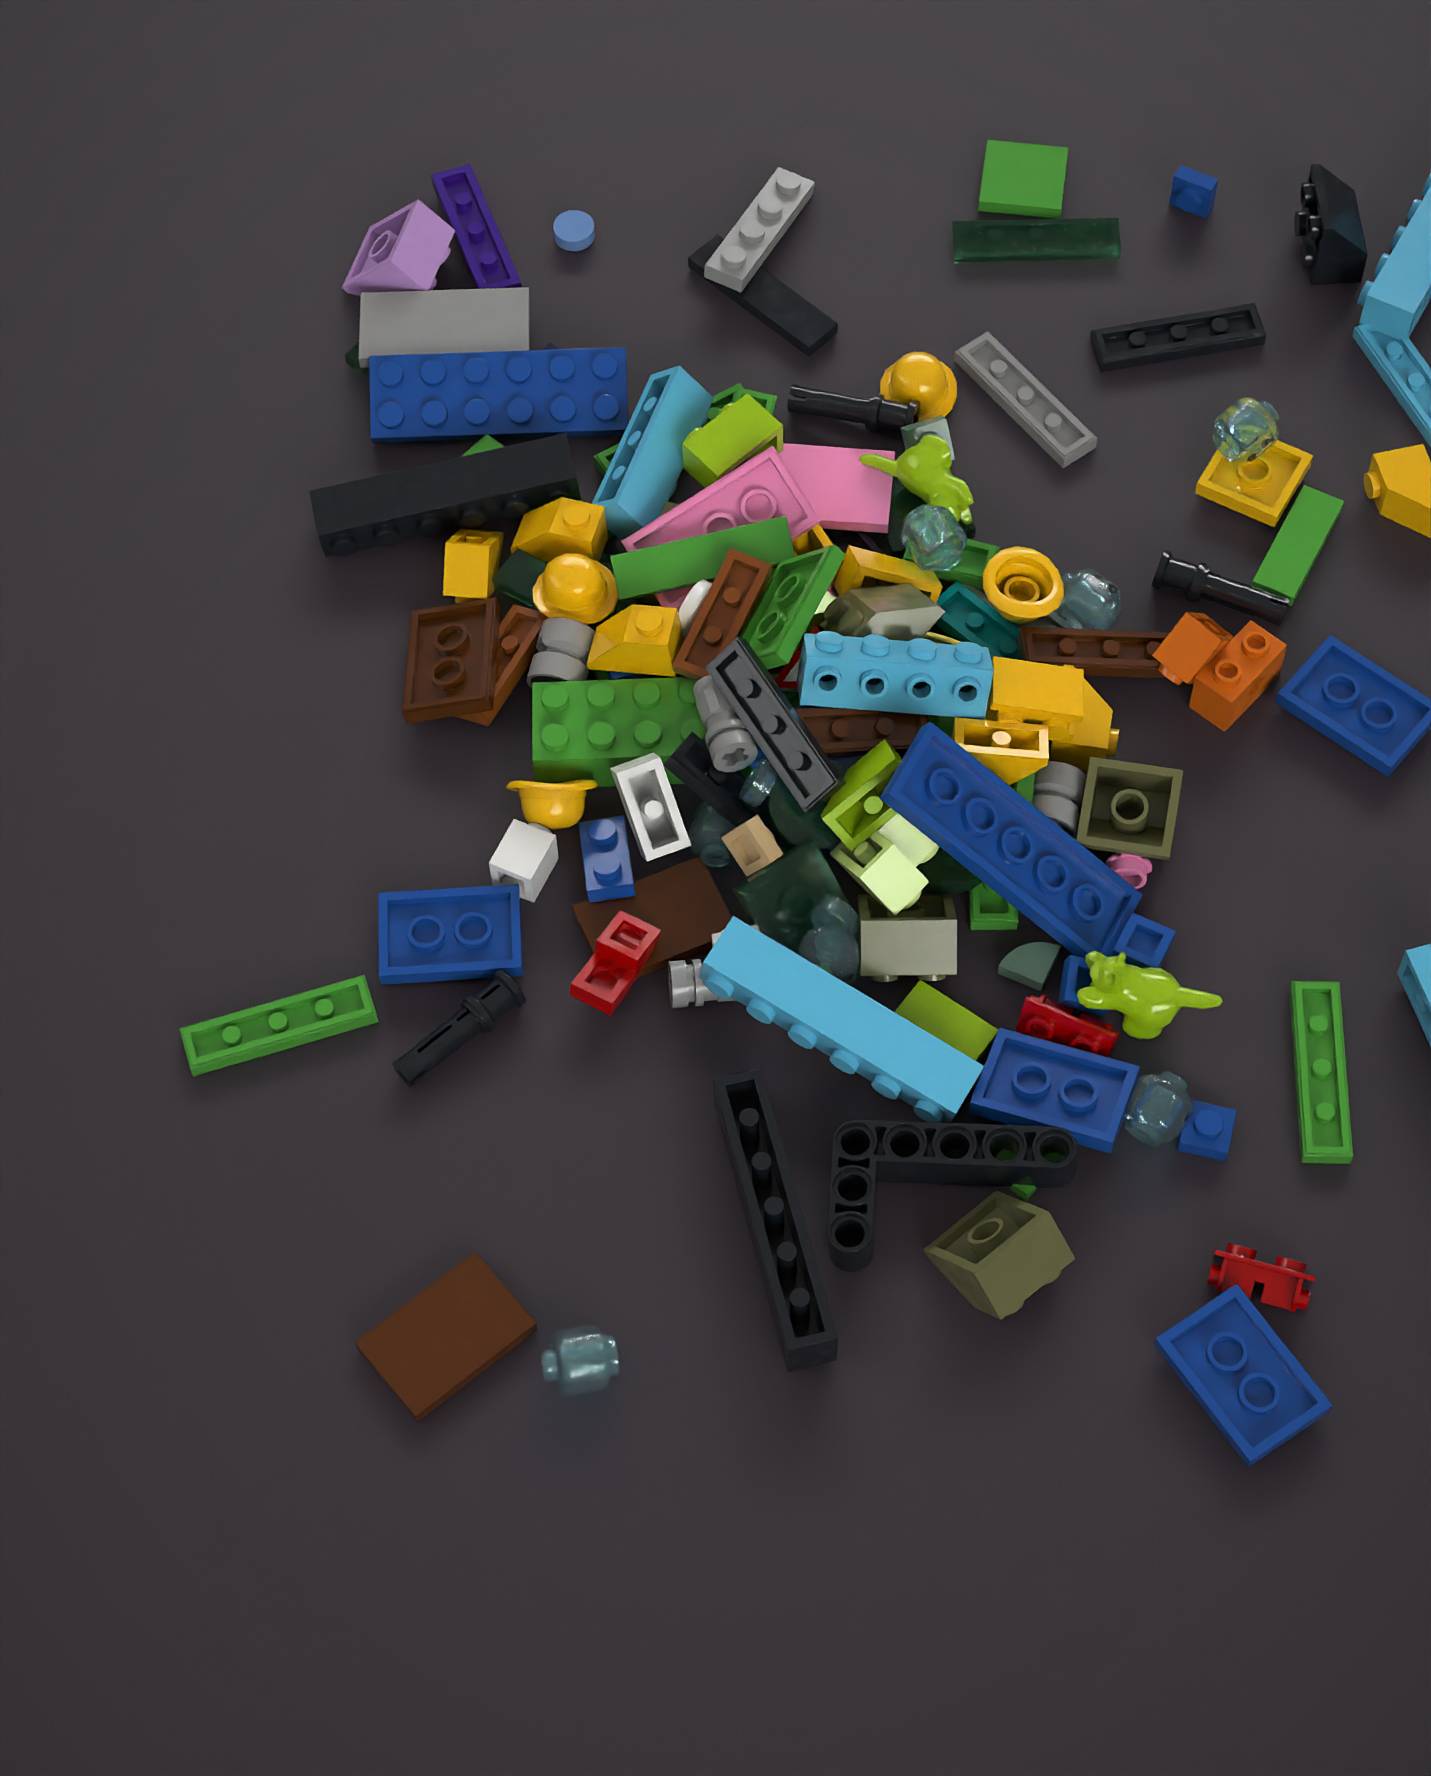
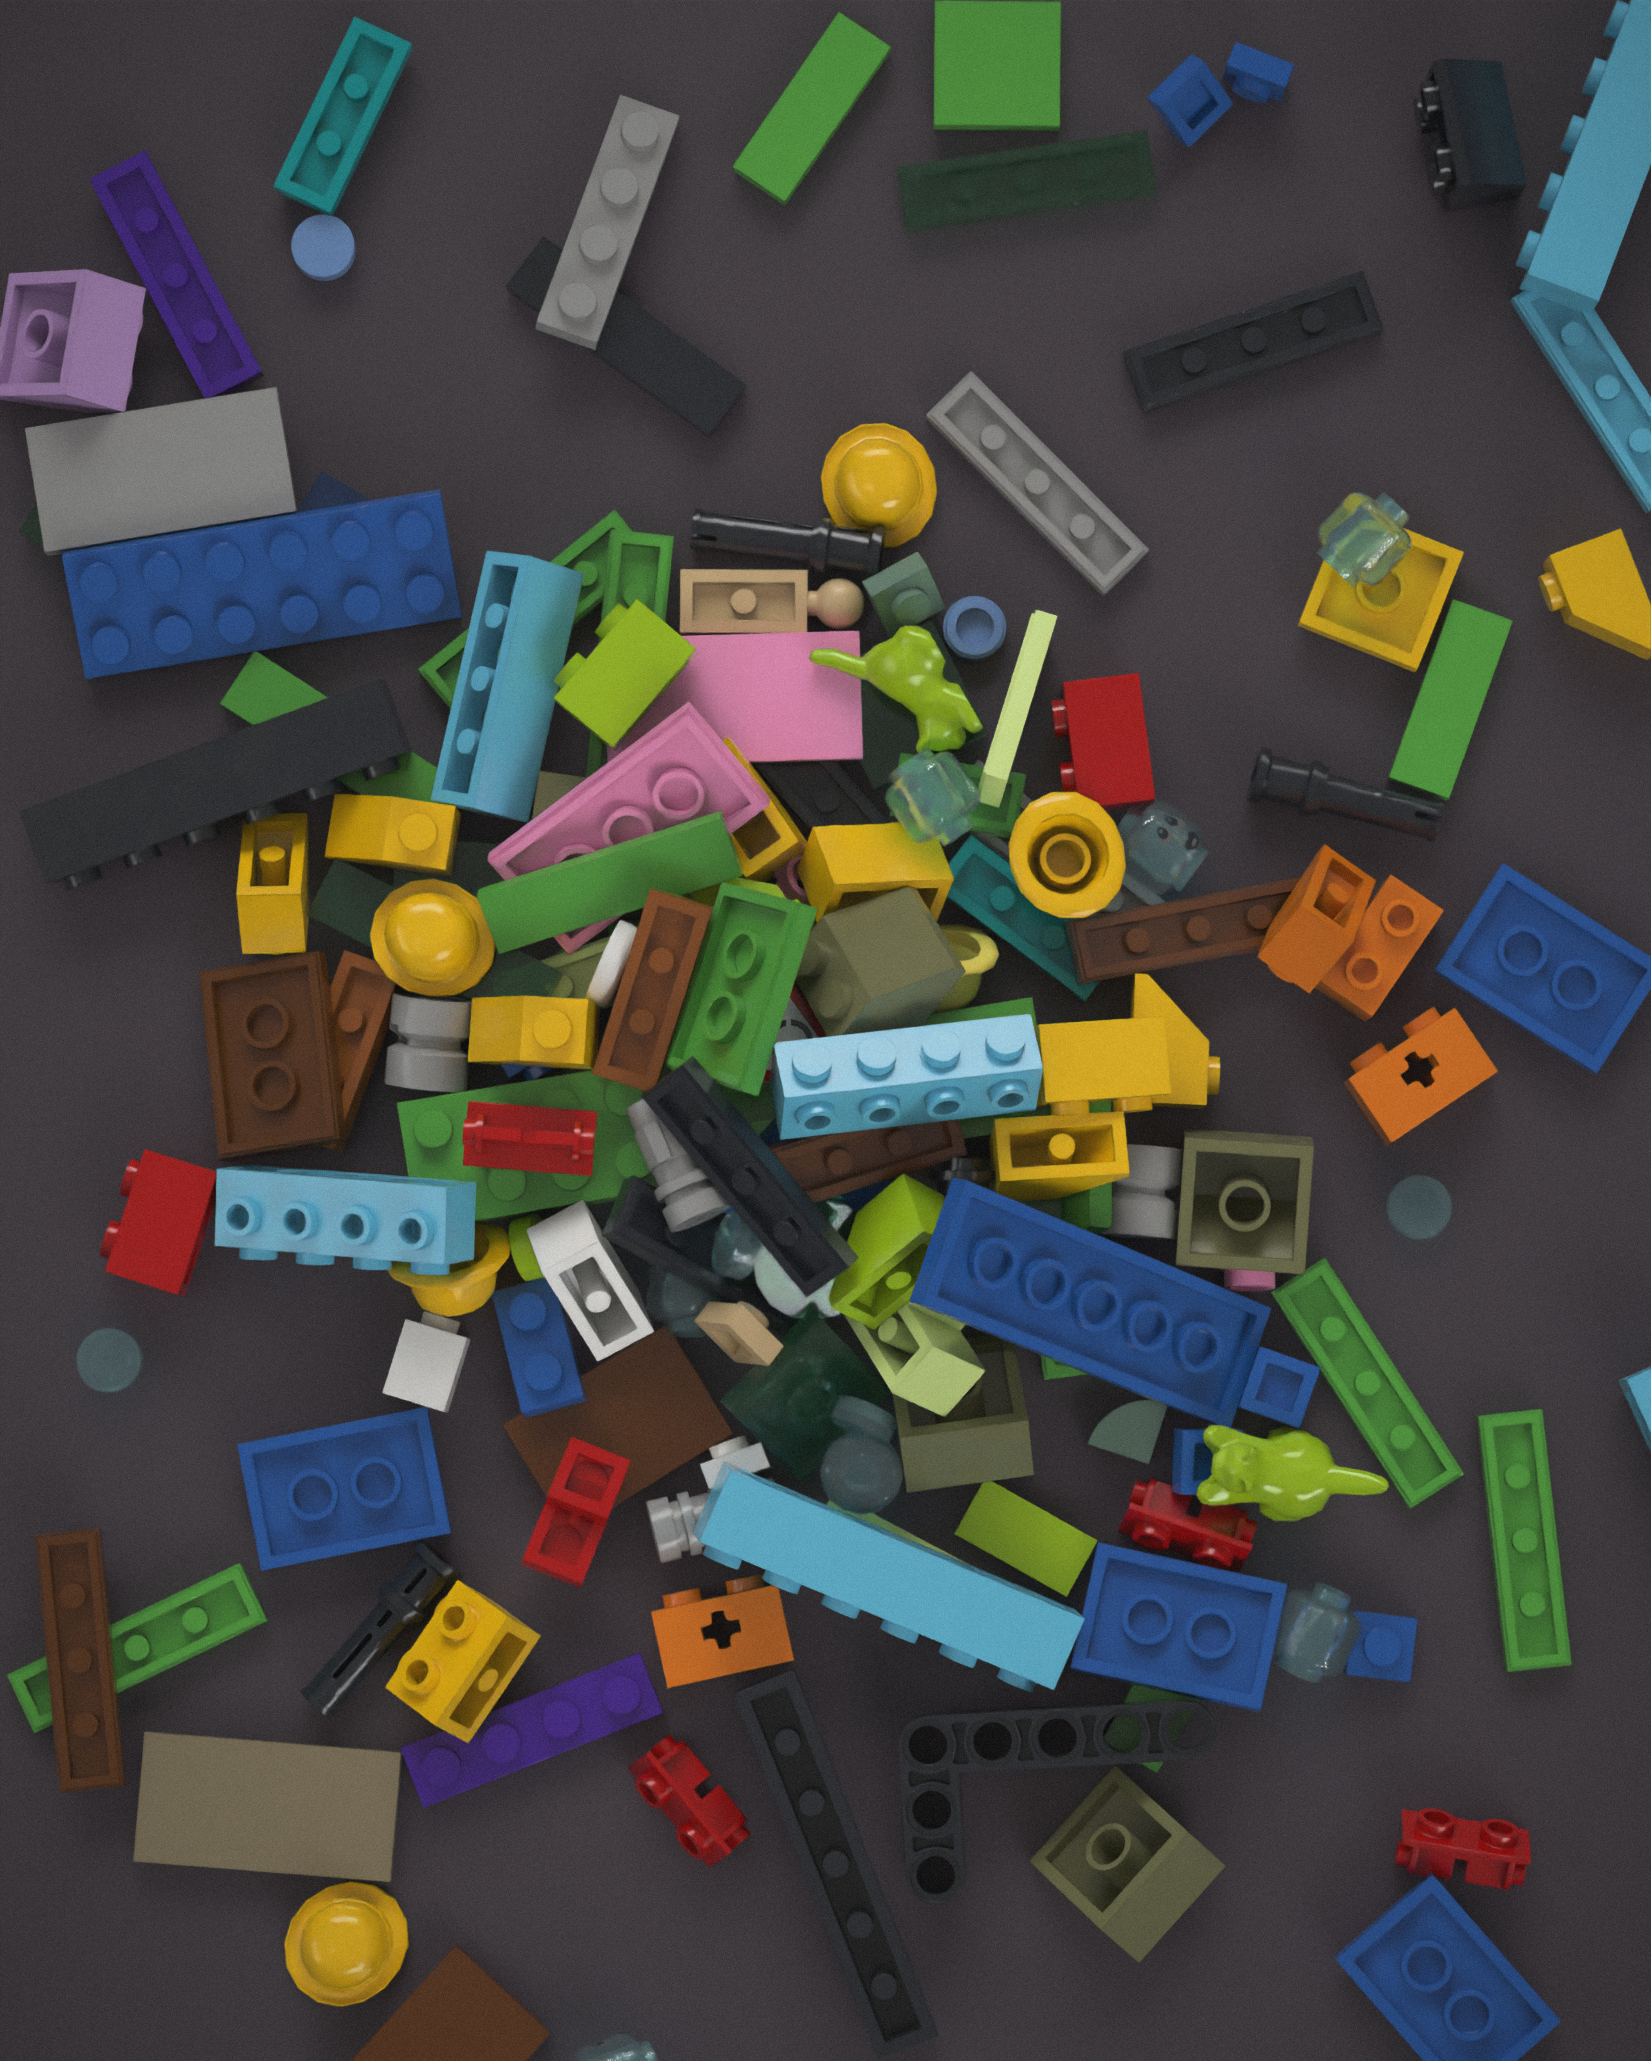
camera: 10 degrees left, 25 degrees up
(234, 1021) = (80, 1660): none -> reddish brown tile
(299, 838) = (109, 1360): none -> clear light blue tile
(352, 1142) = (267, 1806): none -> dark tan tile
(354, 752) = (161, 1222): none -> red brick
(391, 1245) = (346, 1943): none -> yellow hat
(484, 743) = (345, 1216): none -> medium azure brick
(515, 1048) = (462, 1661): none -> yellow brick
(558, 1113) = (534, 1729): none -> dark purple plate
(599, 162) = (343, 117): none -> teal plate
(609, 796) = (522, 1248): none -> lime tile
(621, 702) = (529, 1138): none -> red hinge
(655, 1156) = (668, 1781): none -> red hinge
(684, 1051) = (693, 1658): none -> orange brick
(835, 433) = (762, 602): none -> tan plate
(900, 190) = (811, 108): none -> bright green tile
(976, 471) = (974, 628): none -> medium blue tile
(997, 504) = (1016, 707): none -> yellowish green tile
(1057, 529) = (1105, 741): none -> red brick
(1147, 202) = (1190, 100): none -> blue plate
(1210, 954) = (1366, 1383): none -> bright green tile
(1255, 846) = (1418, 1207): none -> clear light blue tile
(1262, 757) = (1457, 1068): none -> orange brick

